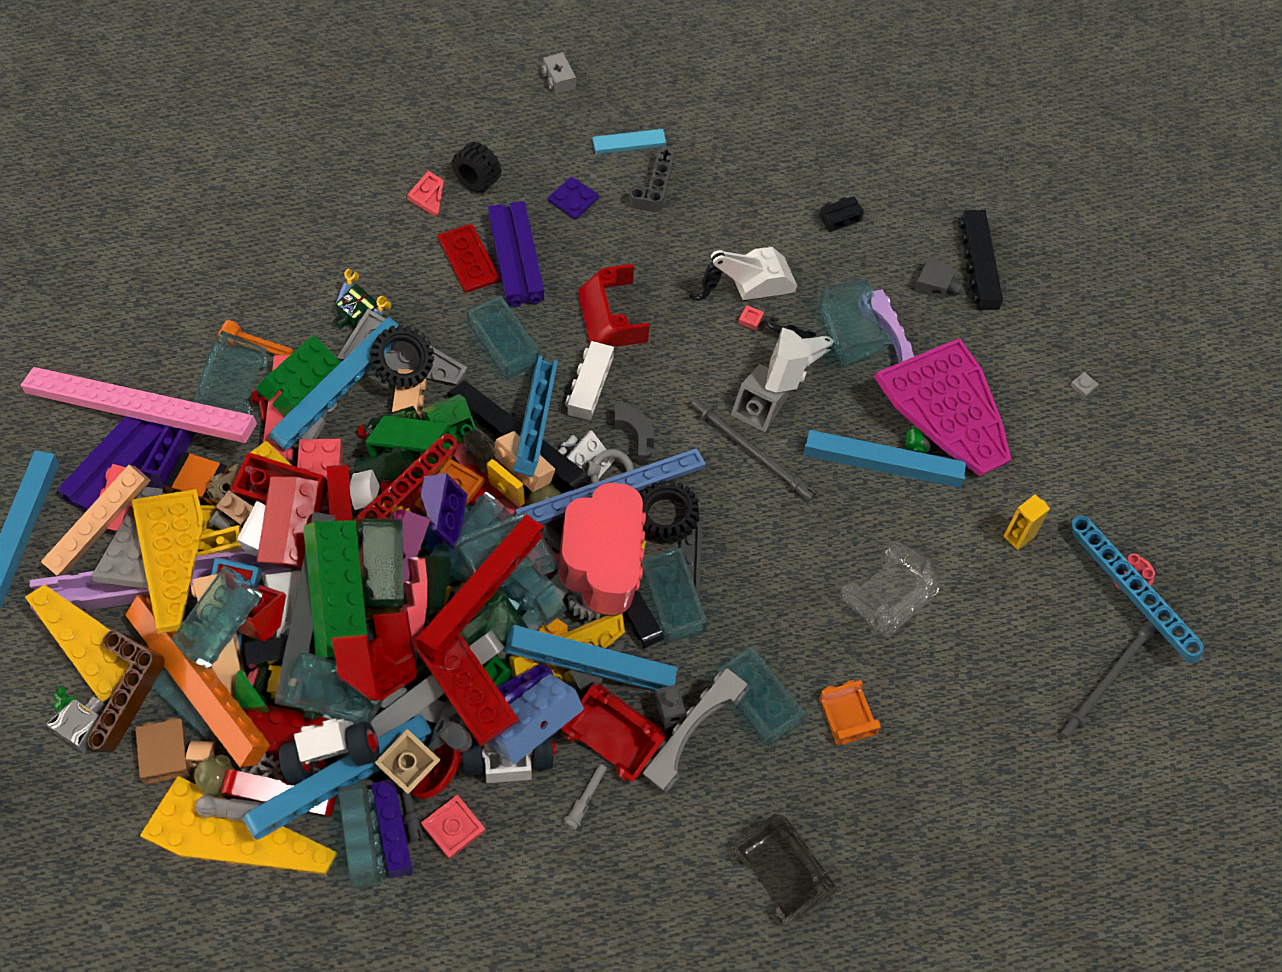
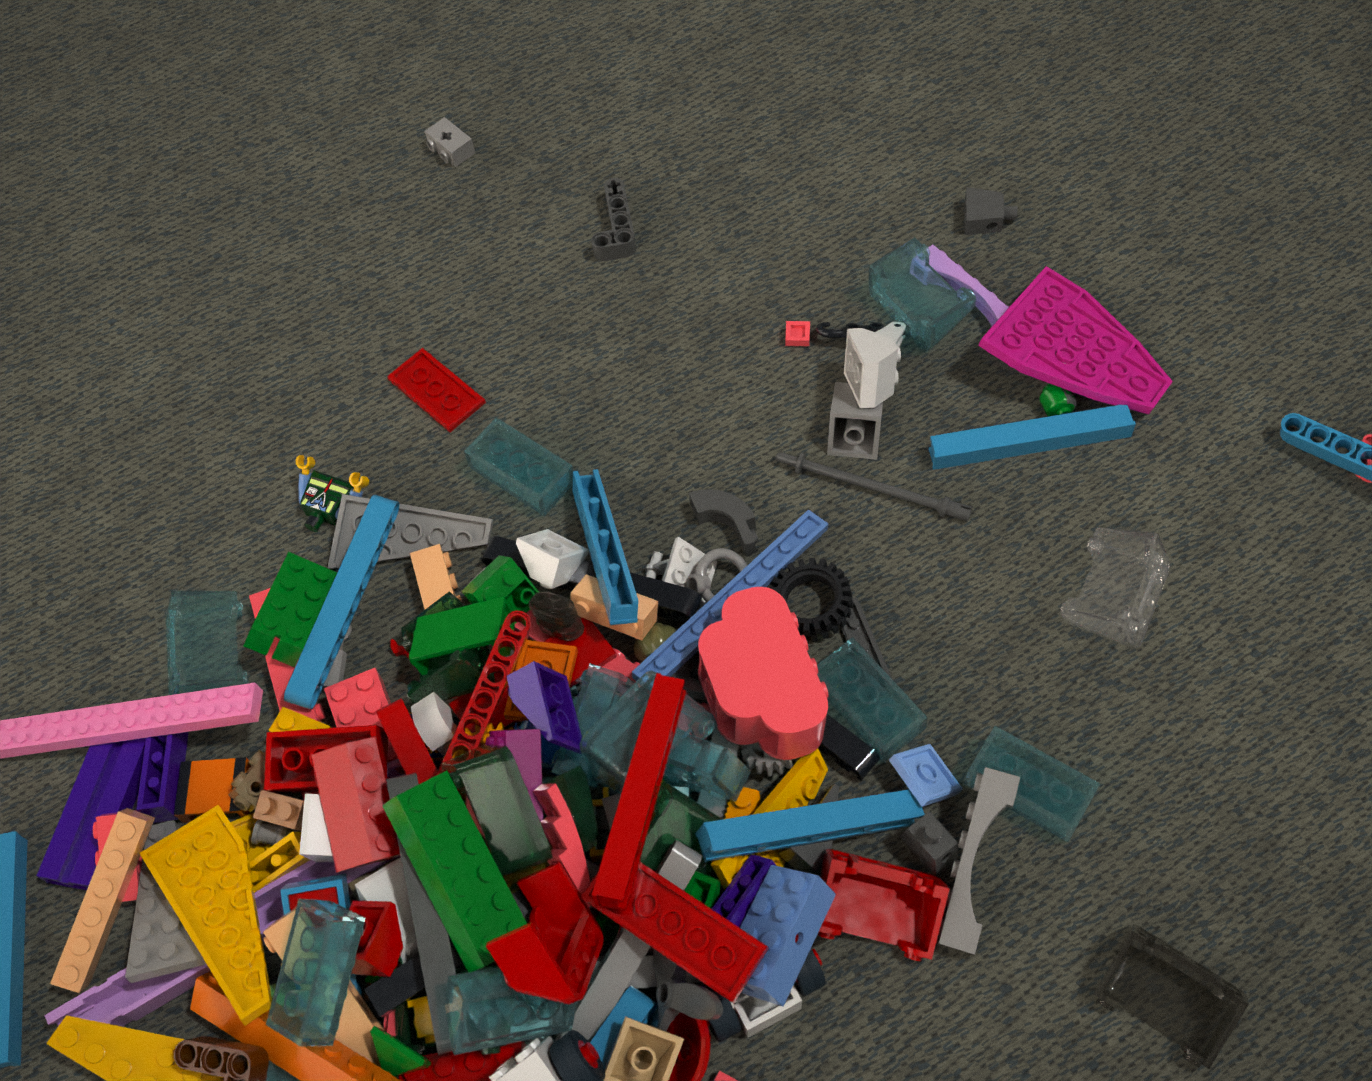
camera: 10 degrees left, 0 degrees up
(262, 402) = (258, 660): red bar -> none
(272, 348) = (184, 582): orange axle -> none
(389, 375) = (415, 509): black tyre -> none
(427, 193) = (355, 333): coral wing -> none
(476, 167) = (401, 280): black tyre -> none
(494, 409) = (550, 557): none -> white slope
(505, 483) = (607, 642): yellow plate -> none
(516, 254) = (491, 363): dark purple brick -> none
(573, 198) = (528, 275): dark purple plate -> none
(580, 807) = (879, 1030): light grey pin -> none
(590, 380) = (647, 478): white brick -> none
(599, 323) = (630, 409): red windscreen -> none
(629, 141) = (563, 188): medium azure tile -> none
(689, 661) = (925, 775): none -> light blue tile
(755, 274) = (780, 282): white slope -> none
(841, 213) = (842, 179): black brick -> none
(848, 712) = (1143, 760): orange panel -> none
(981, 260) = (1023, 172): black brick -> none
(1026, 521) = (1235, 445): yellow brick -> none
(1084, 384) = (1206, 266): light grey plate -> none

